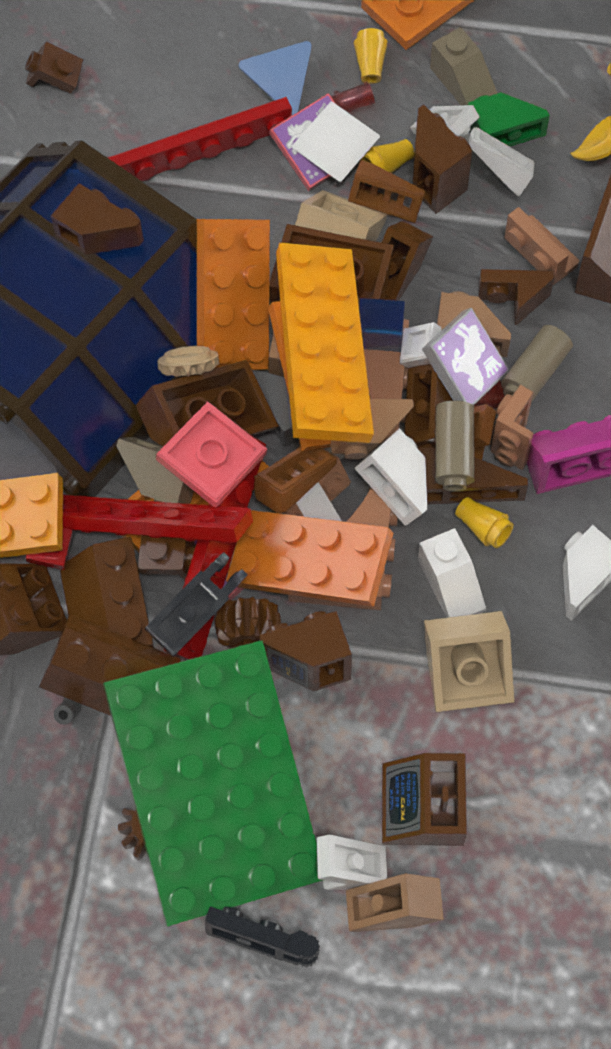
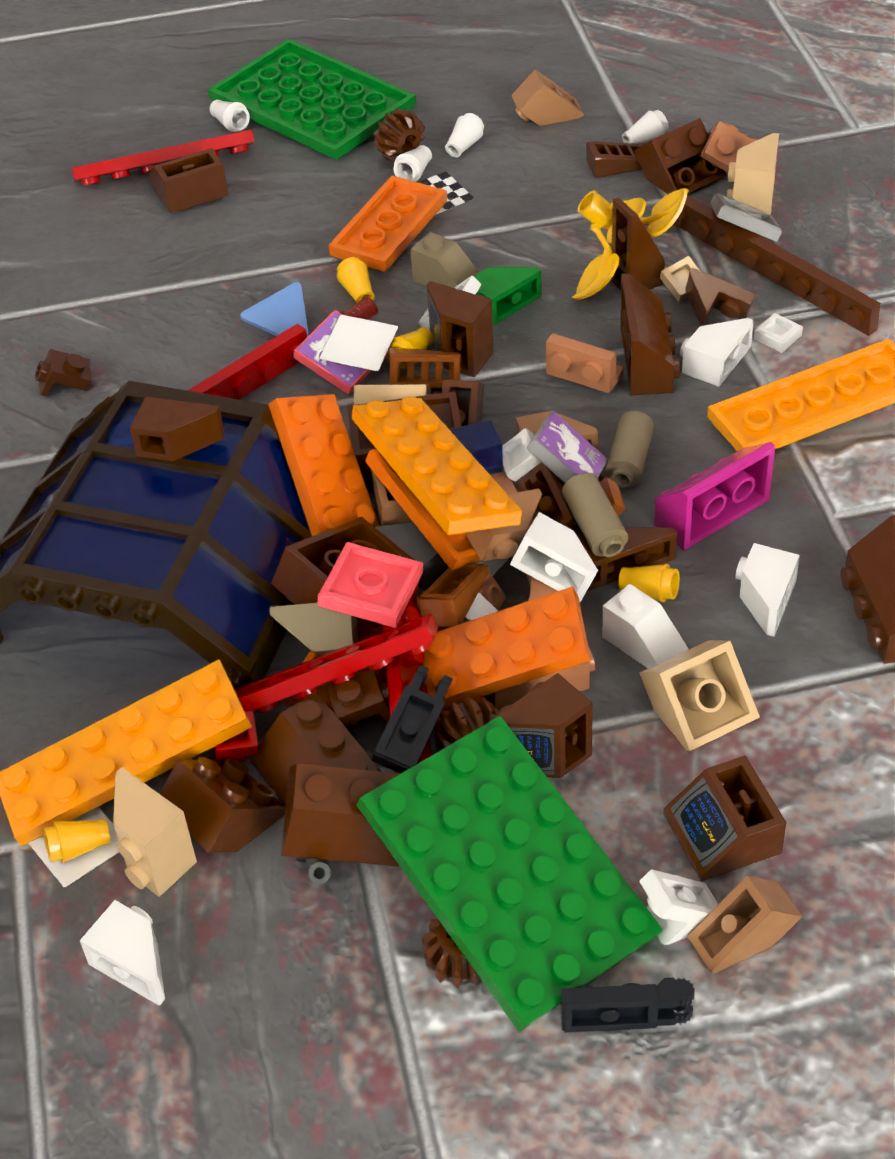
camera: 20 degrees left, 20 degrees down
(188, 361) = (308, 525): tan gear -> none
(504, 161) = (528, 317): white slope -> none
(511, 438) = (641, 493): nougat bracket -> none
(524, 287) = (582, 399): reddish brown slope -> none

